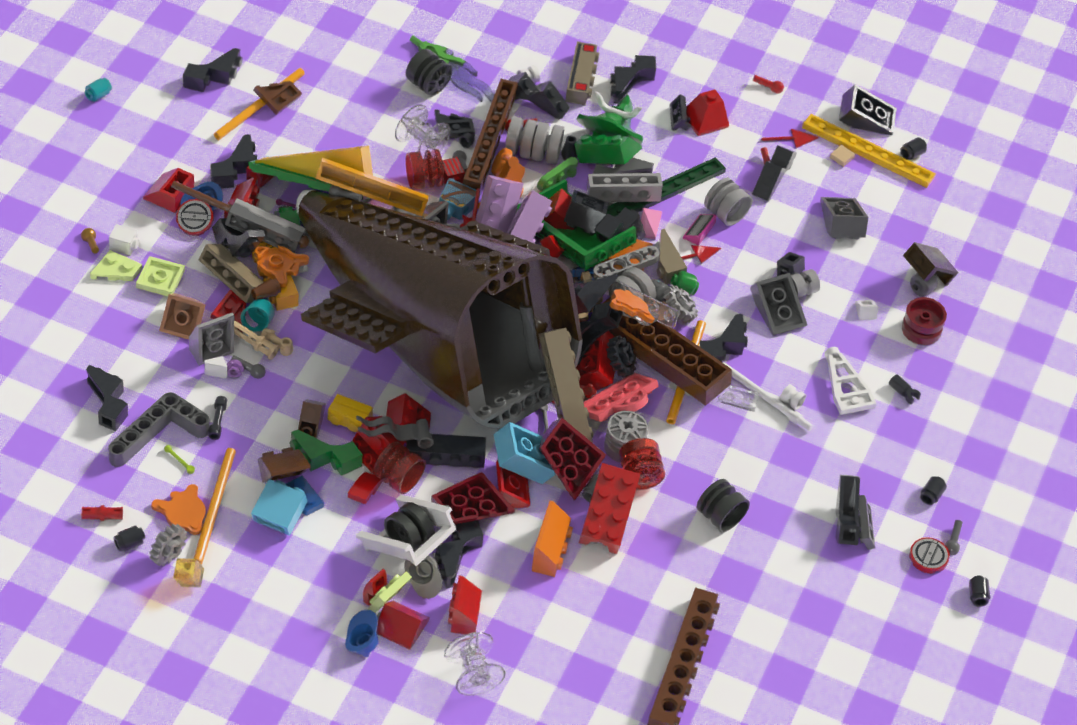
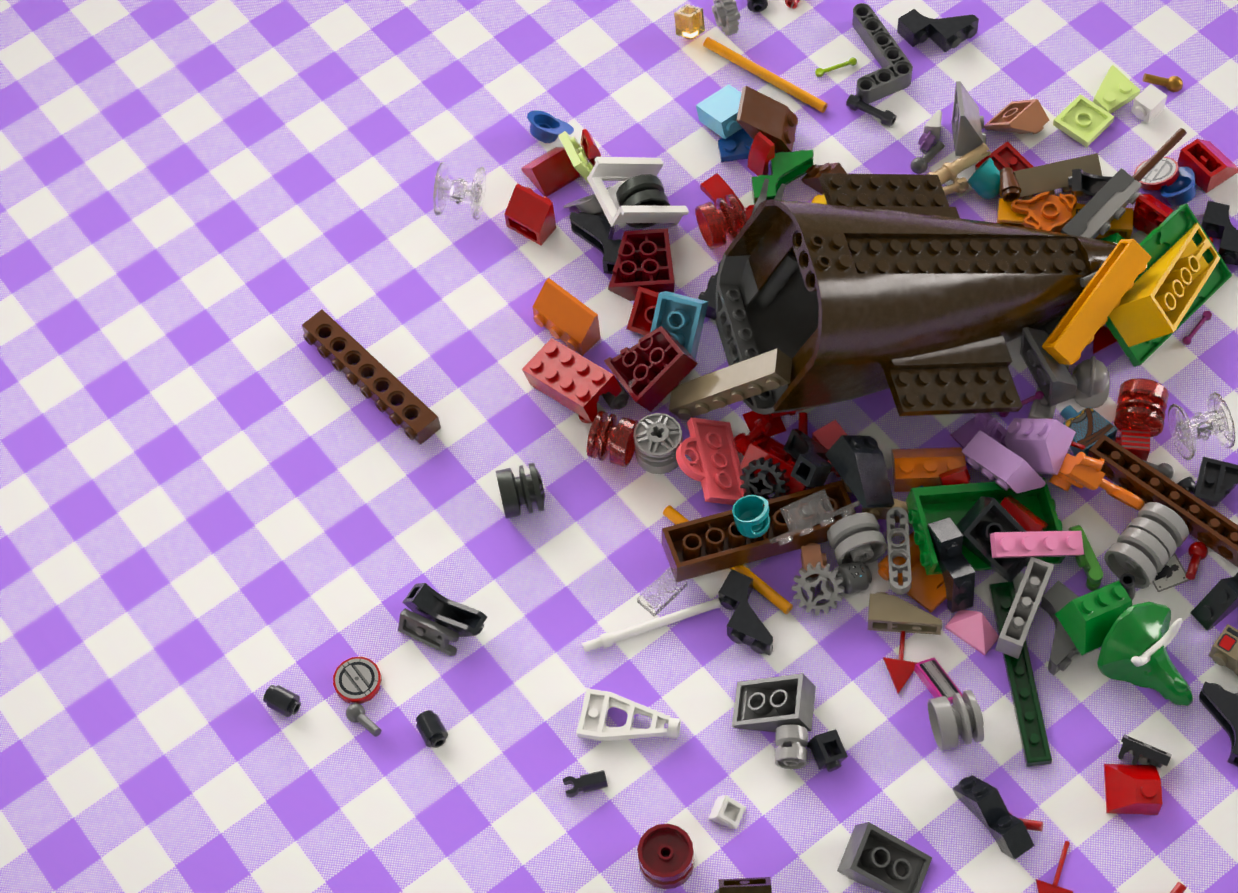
camera: 130 degrees right, 10 degrees up
(183, 509) = (773, 50): orange tile -> none
(317, 464) = (760, 154): none -> red slope
(578, 186) = (1036, 544): none -> bright pink plate
(631, 305) = (807, 488): orange tile -> none
(669, 335) = (750, 516): none -> teal helmet
(685, 281) = (851, 613): green head -> none
(793, 397) = (632, 648): white wheel -> none

